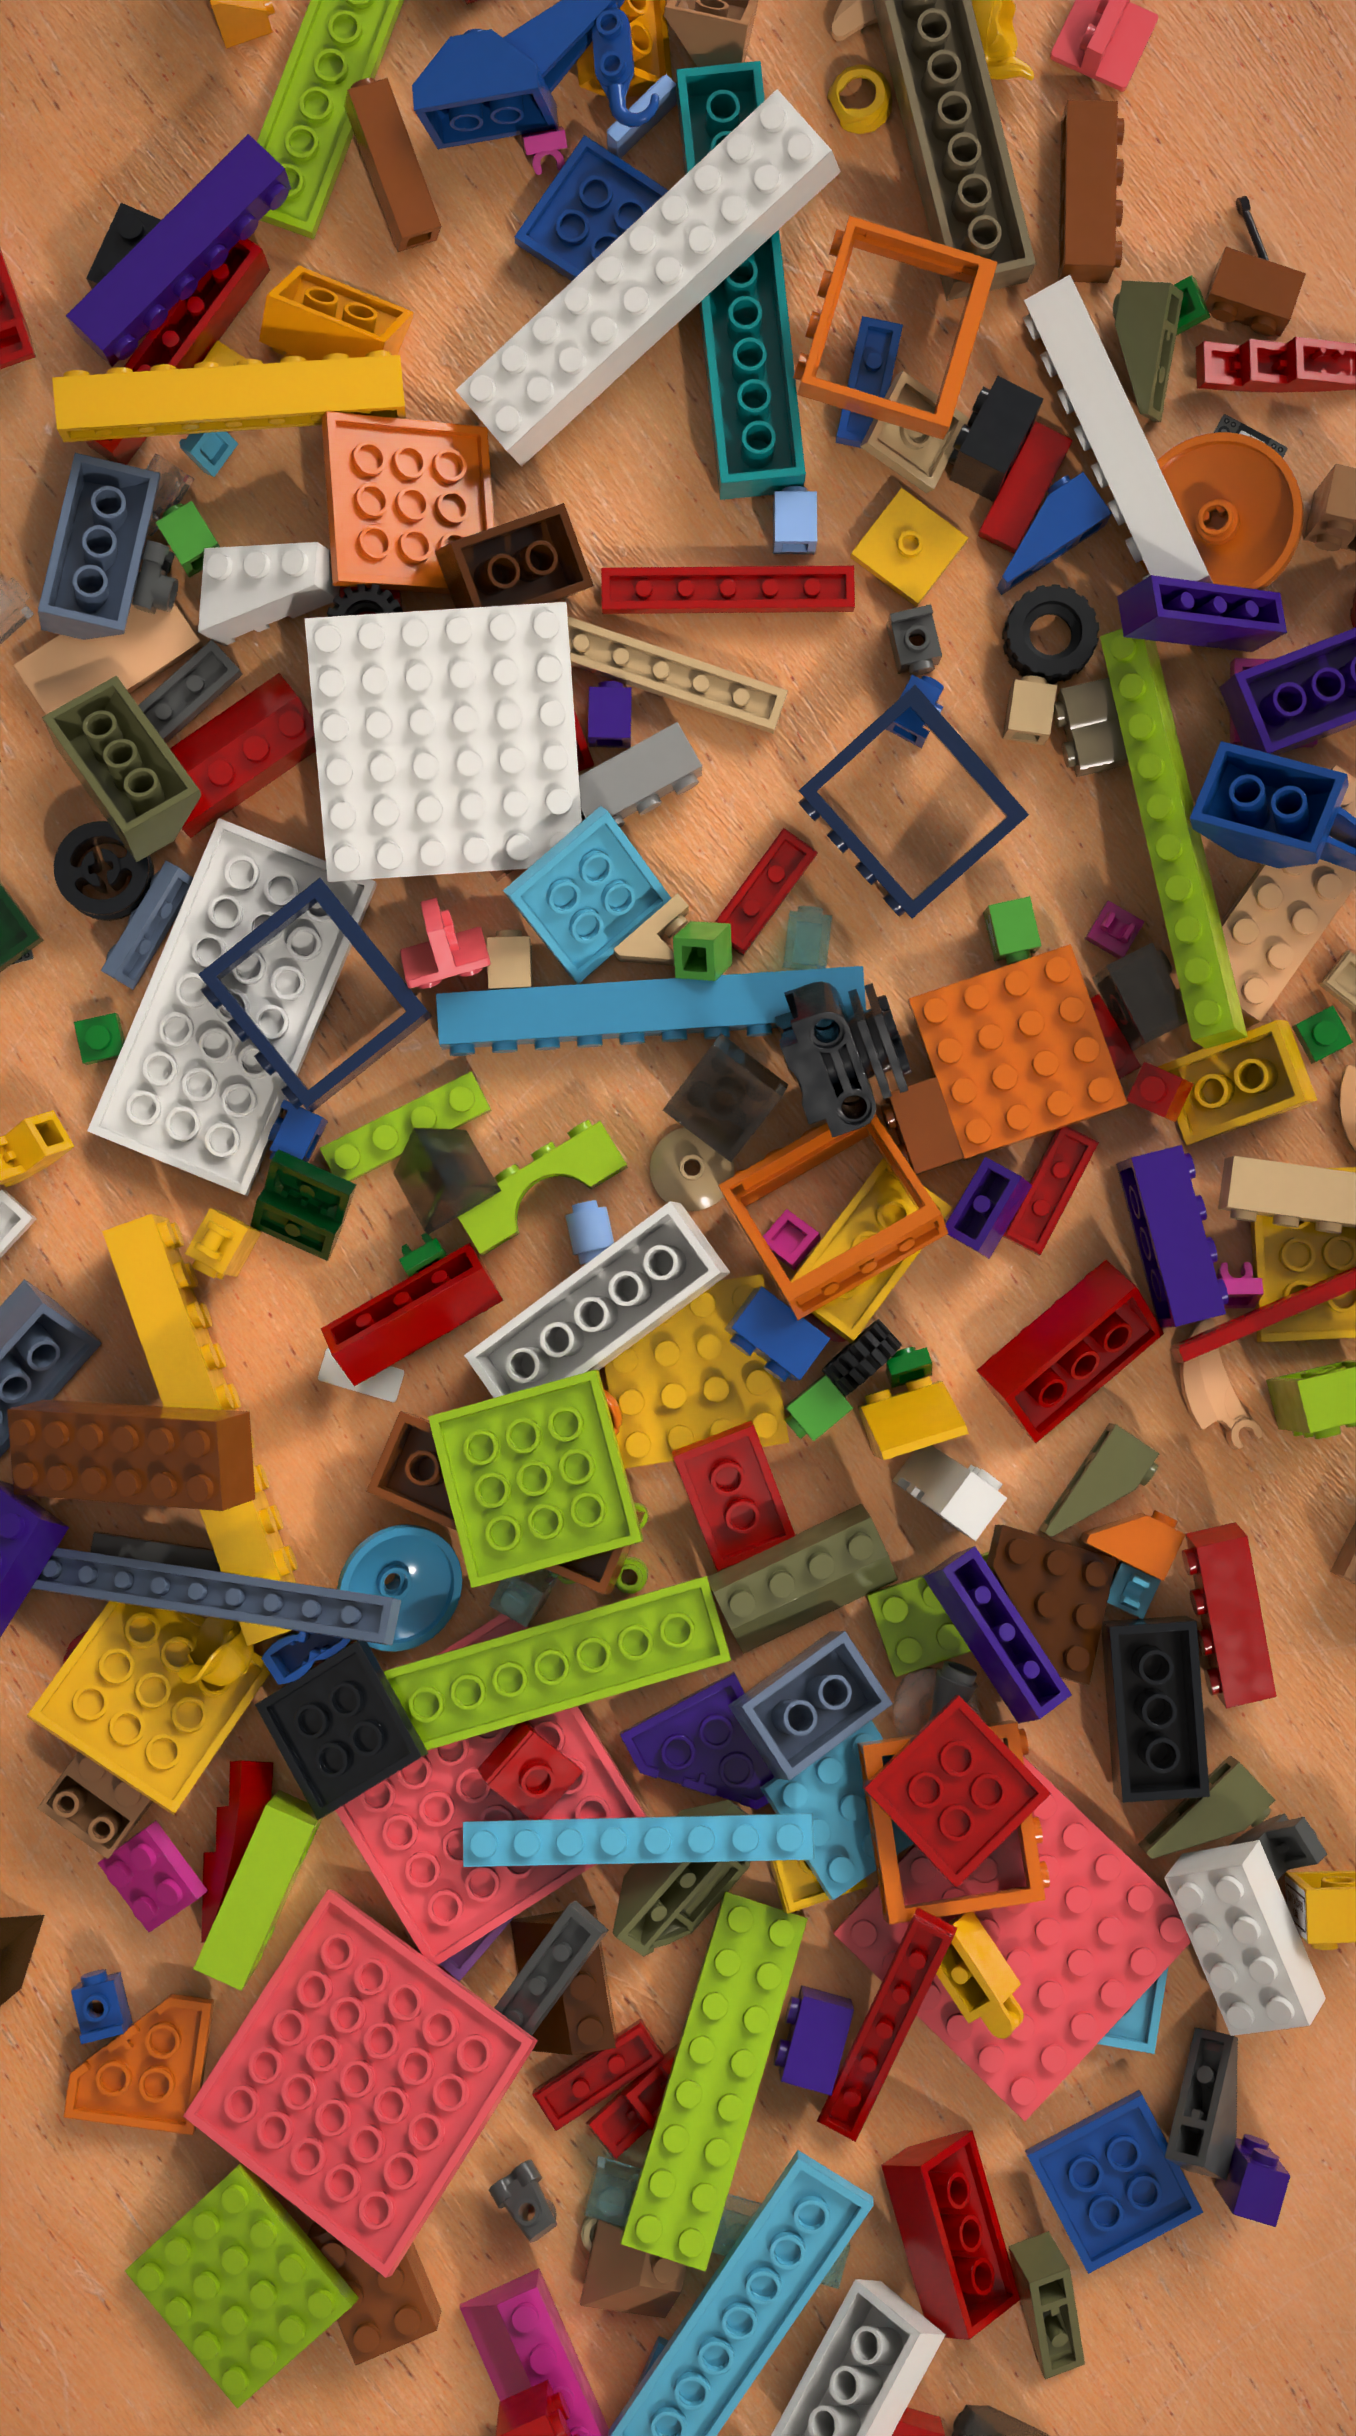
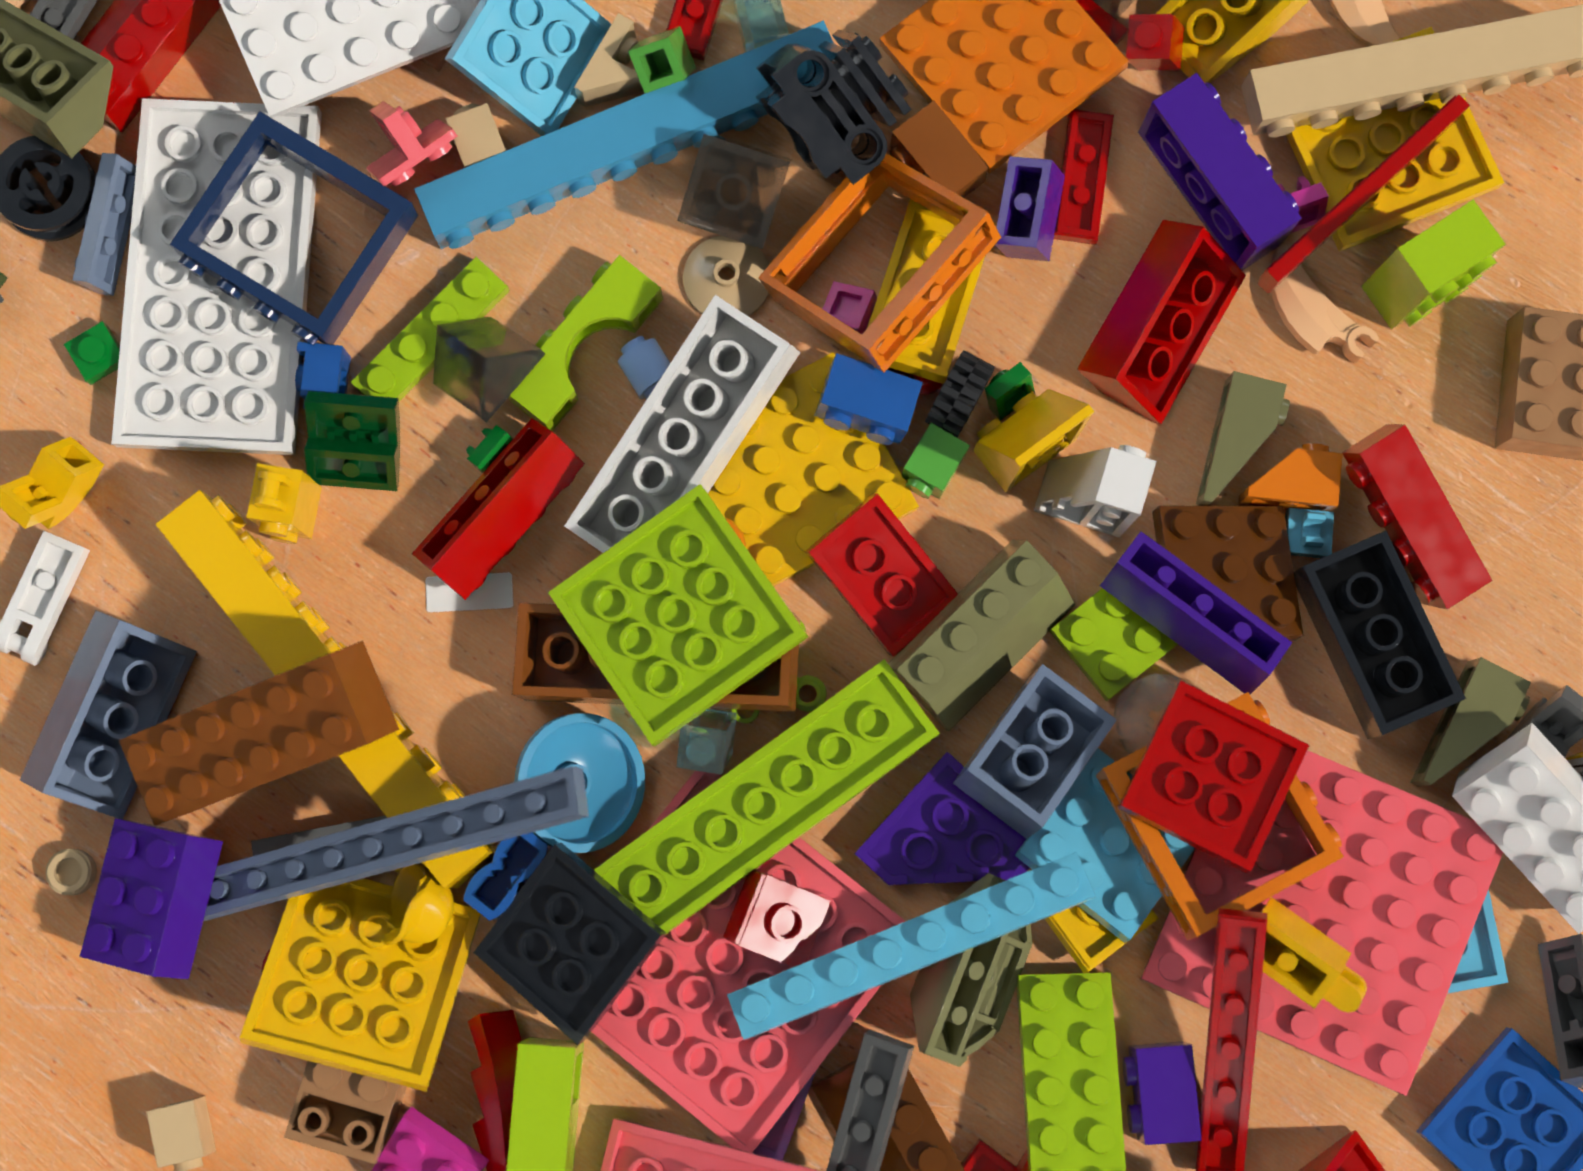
camera: 15 degrees left, 5 degrees down
(952, 1681) = (1164, 681): dark grey cone -> none

